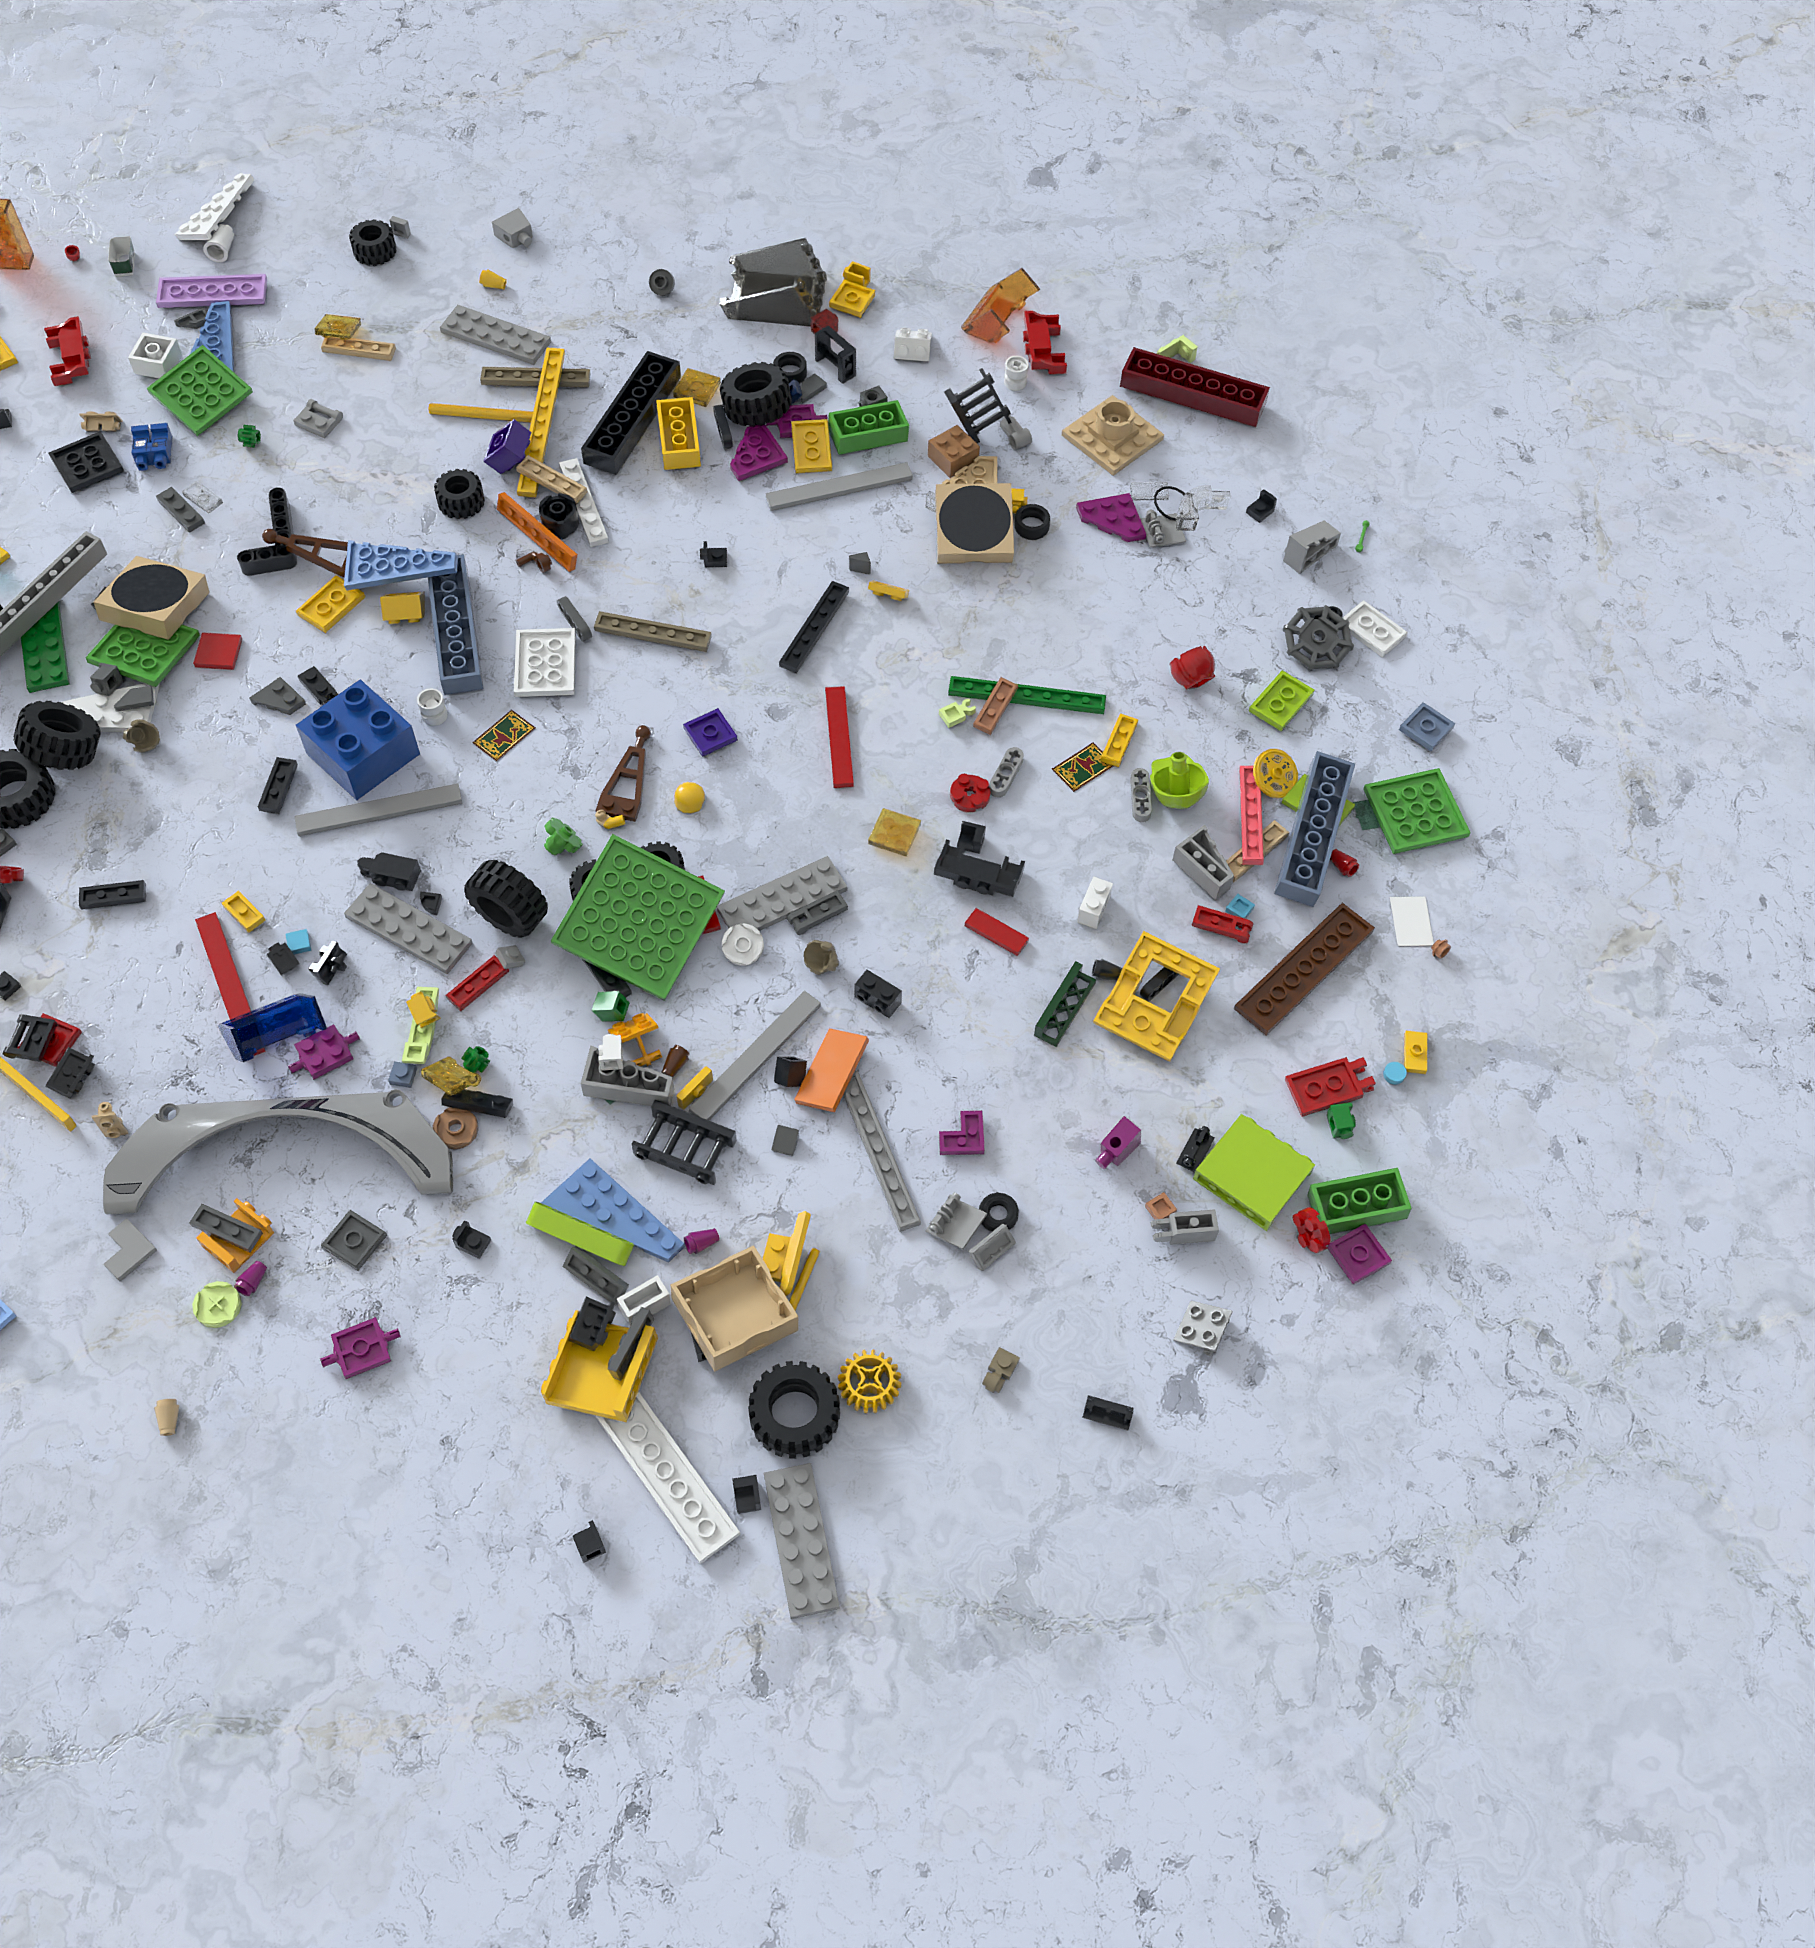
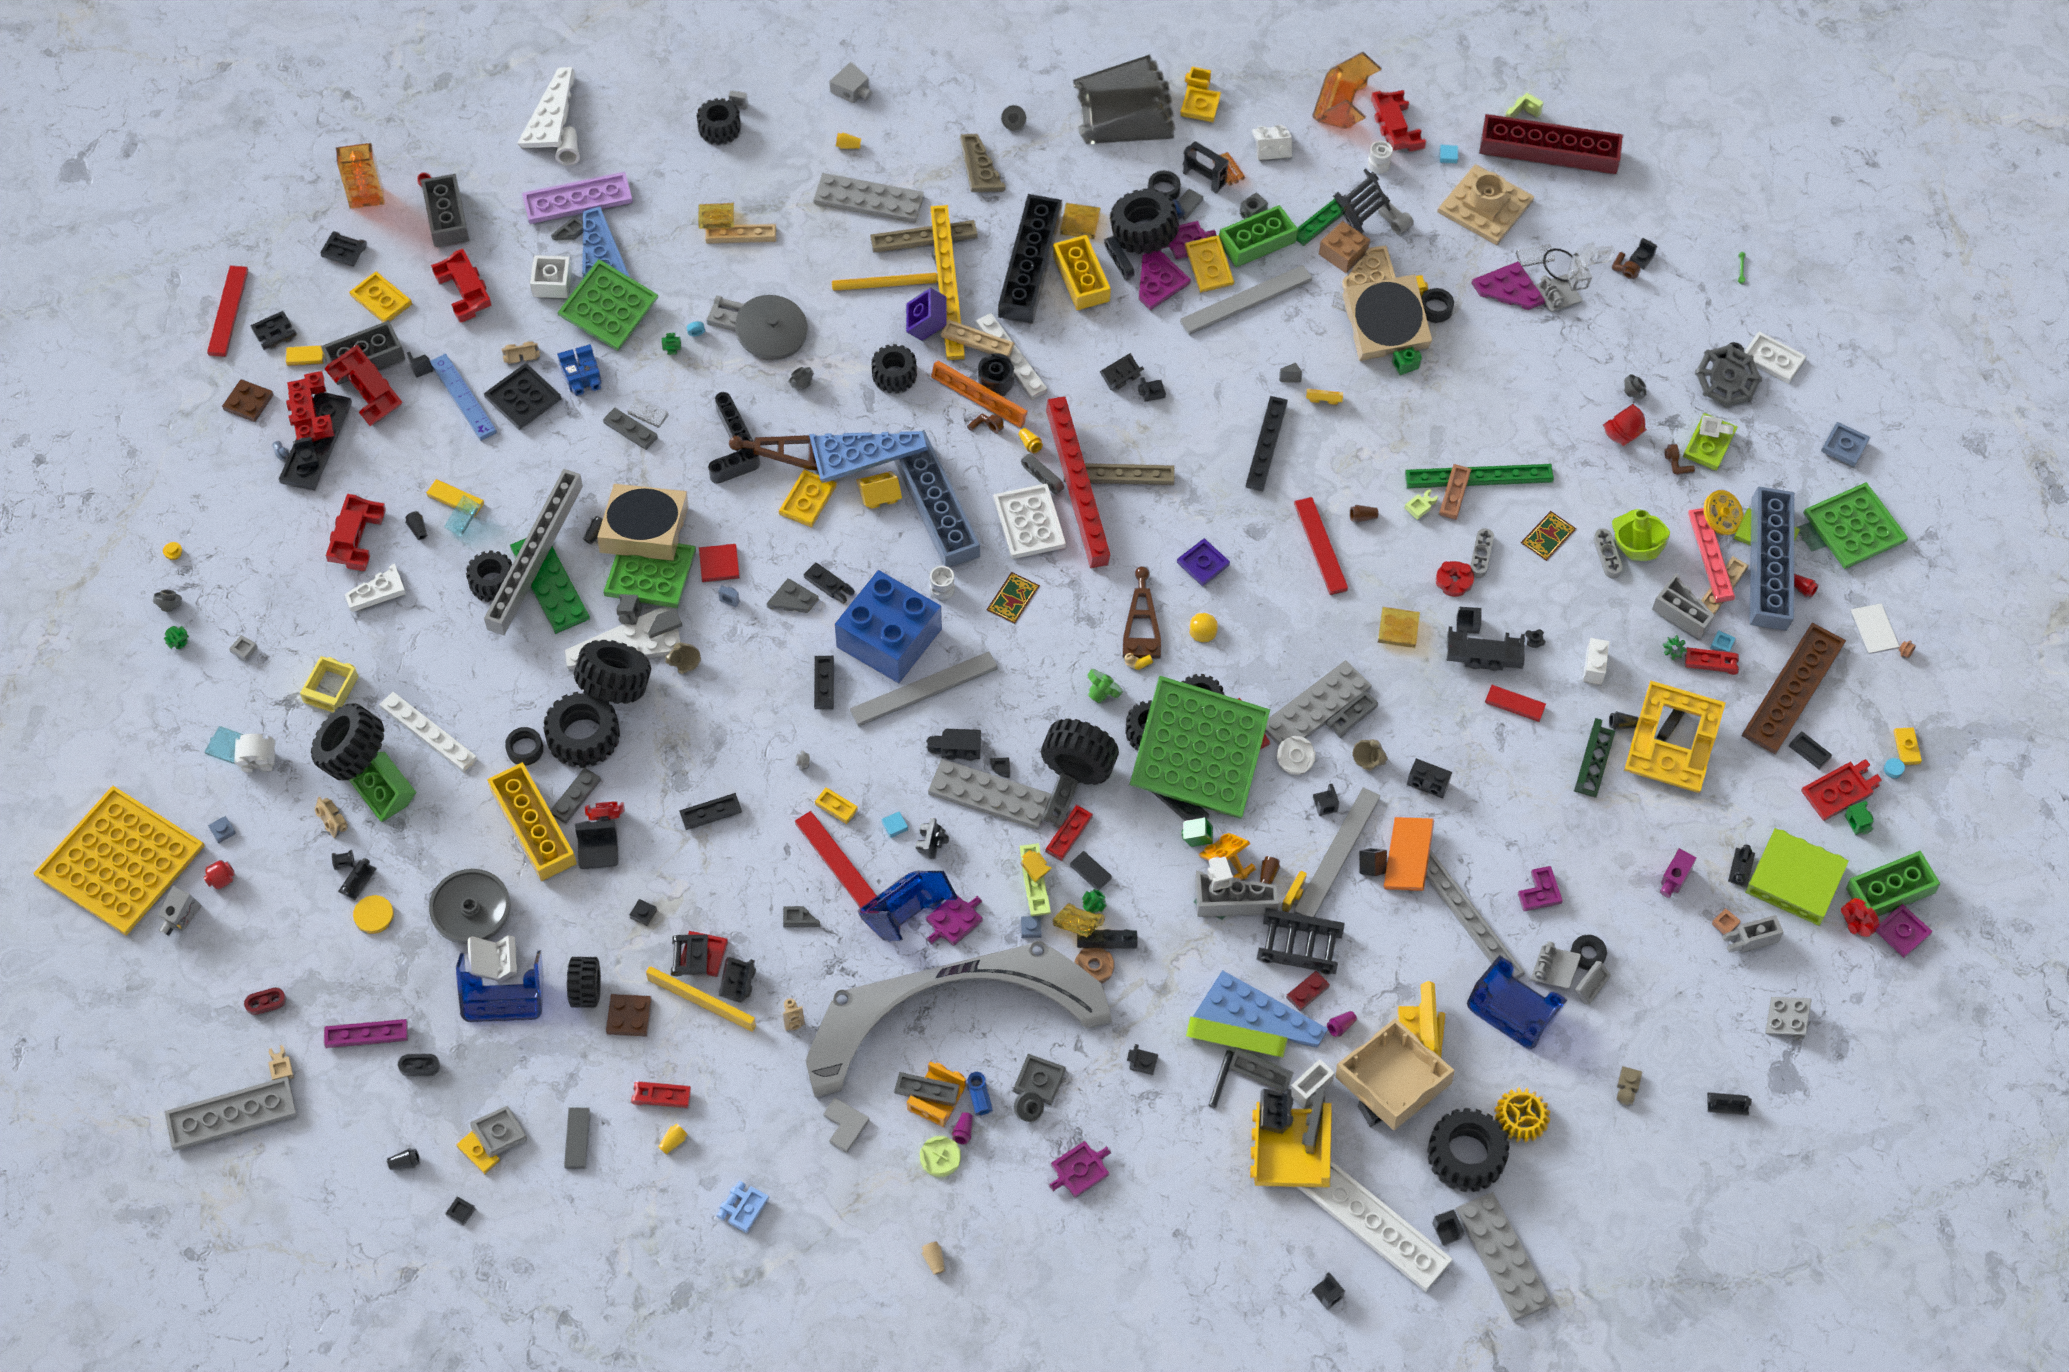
camera: 10 degrees left, 0 degrees up
(29, 454) = (463, 397): none -> medium blue tile
(78, 281) = (444, 210): none -> dark grey brick
(117, 247) = (471, 165): white piece -> none
(162, 1019) = (798, 917): none -> dark grey tile
(213, 684) = (729, 596): none -> sand blue plate
(225, 859) = (802, 760): none -> light grey plate
(279, 426) = (695, 328): none -> medium azure tile
(280, 1244) = (979, 1095): none -> blue piece
(282, 958) = (887, 841): black bracket -> none
(328, 1267) = (1028, 1106): none -> dark grey plate
(353, 436) = (771, 327): none -> dark grey dish
(364, 488) = (801, 377): none -> dark grey plate
(478, 946) = (1060, 800): none -> dark grey plate
(486, 1026) = (1090, 870): none -> black tile
(510, 957) = (1091, 804): light grey plate -> none
(549, 1278) = (1221, 1078): none -> black bar
(574, 586) = (1030, 440): none -> yellow cone
(604, 632) = (1078, 482): none -> red brick
(613, 322) = (979, 167): none -> dark tan wing
(676, 1198) = (1308, 991): none -> dark red plate
(687, 534) = (1121, 371): none -> black bracket
(760, 999) = (1326, 801): none -> black panel
(785, 1140) = (1387, 923): dark grey slope -> none
(824, 319) = (1182, 135): clear red brick -> none
(864, 371) = (1240, 176): none -> clear orange tile
(893, 711) = (1363, 513): none -> reddish brown cone
(895, 1254) = (1513, 1005): none -> clear blue windscreen
(934, 426) = (1318, 222): none -> green tile
(984, 569) = (1406, 360): none -> green brick
(1034, 872) = (1535, 643): none -> black plate
(1088, 382) = (1448, 154): none -> medium azure tile
(1119, 740) = (1574, 504): yellow tile -> none
(1182, 908) = (1679, 644): none -> green gear
(1216, 633) = (1635, 387): none -> dark grey plate
(1236, 706) = (1672, 454): none -> reddish brown plate
(1243, 518) = (1629, 269): none -> reddish brown plate
(1286, 684) = (1712, 426): none -> white plate
(1306, 1037) = (1810, 750): none -> black tile
(1310, 545) = (1698, 286): light grey wedge -> none

